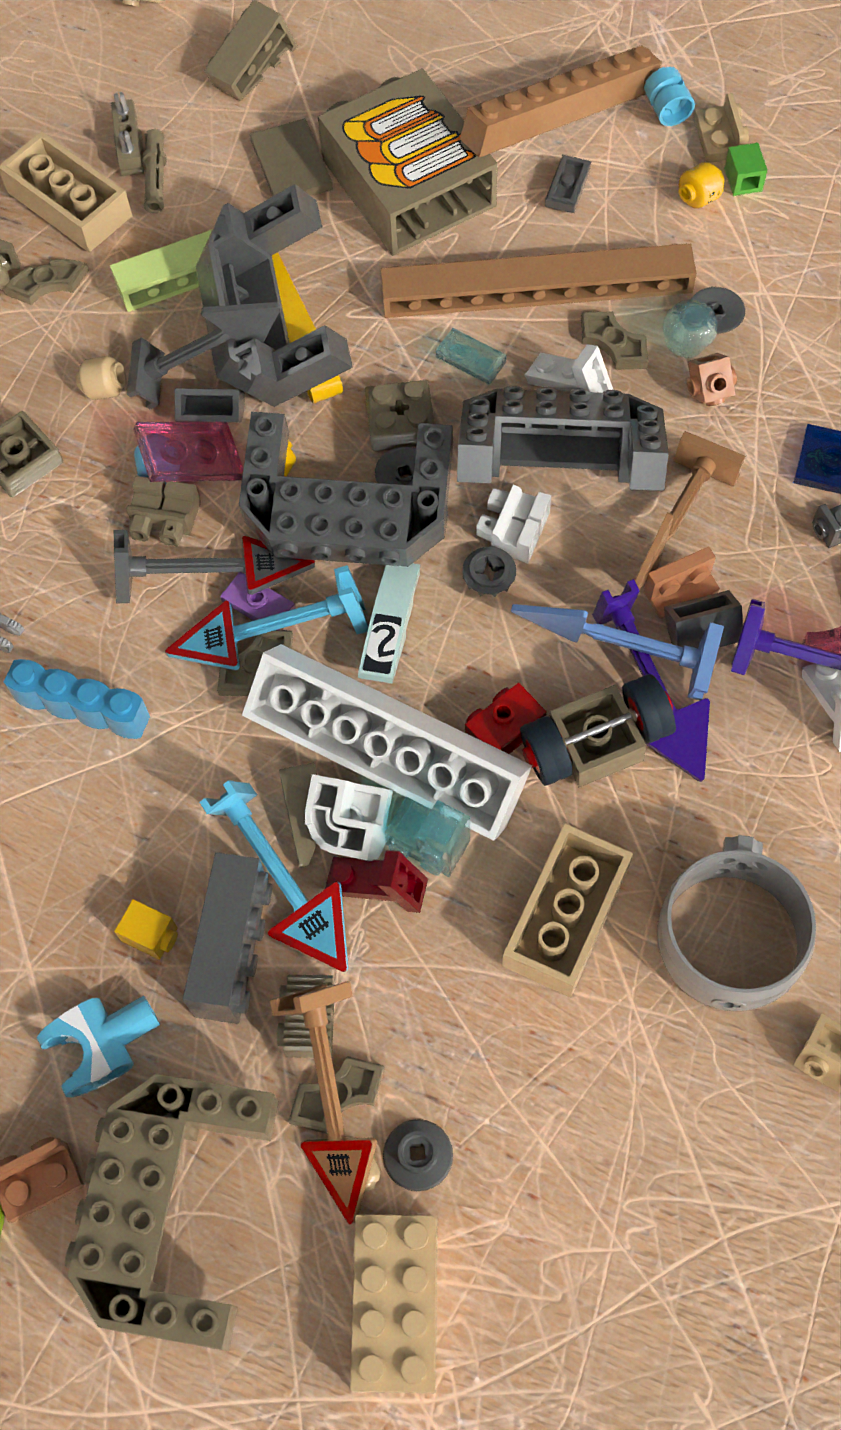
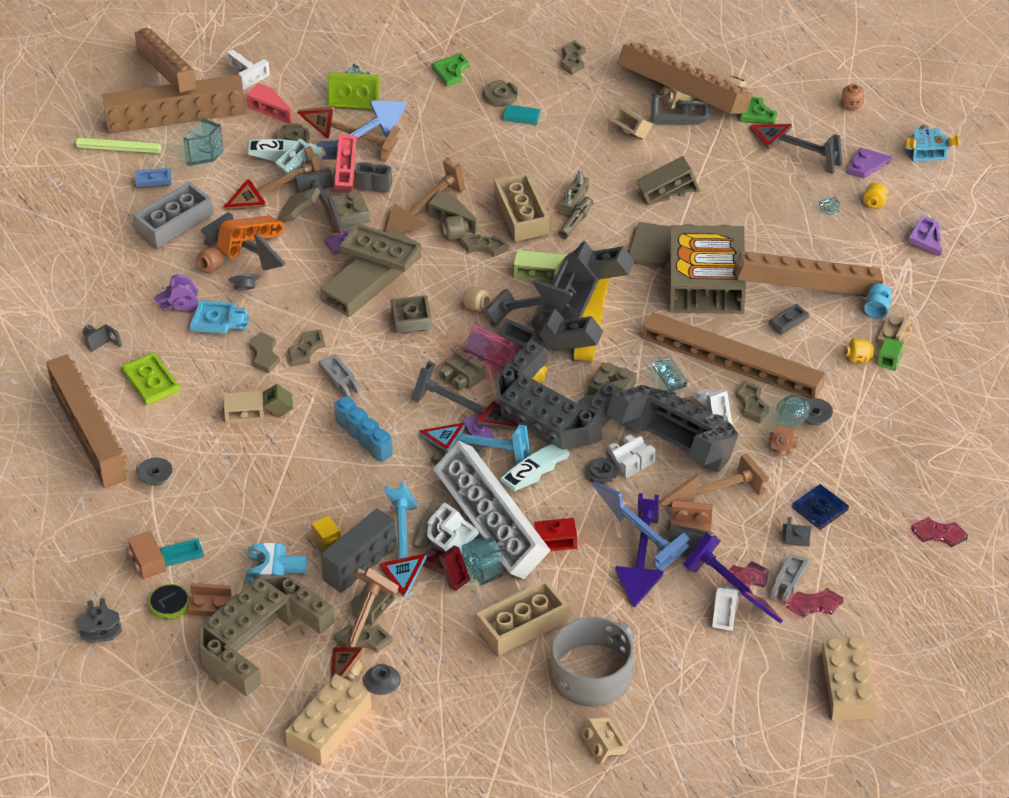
camera: 30 degrees right, 20 degrees down
(598, 732) = (593, 555): brick -> none

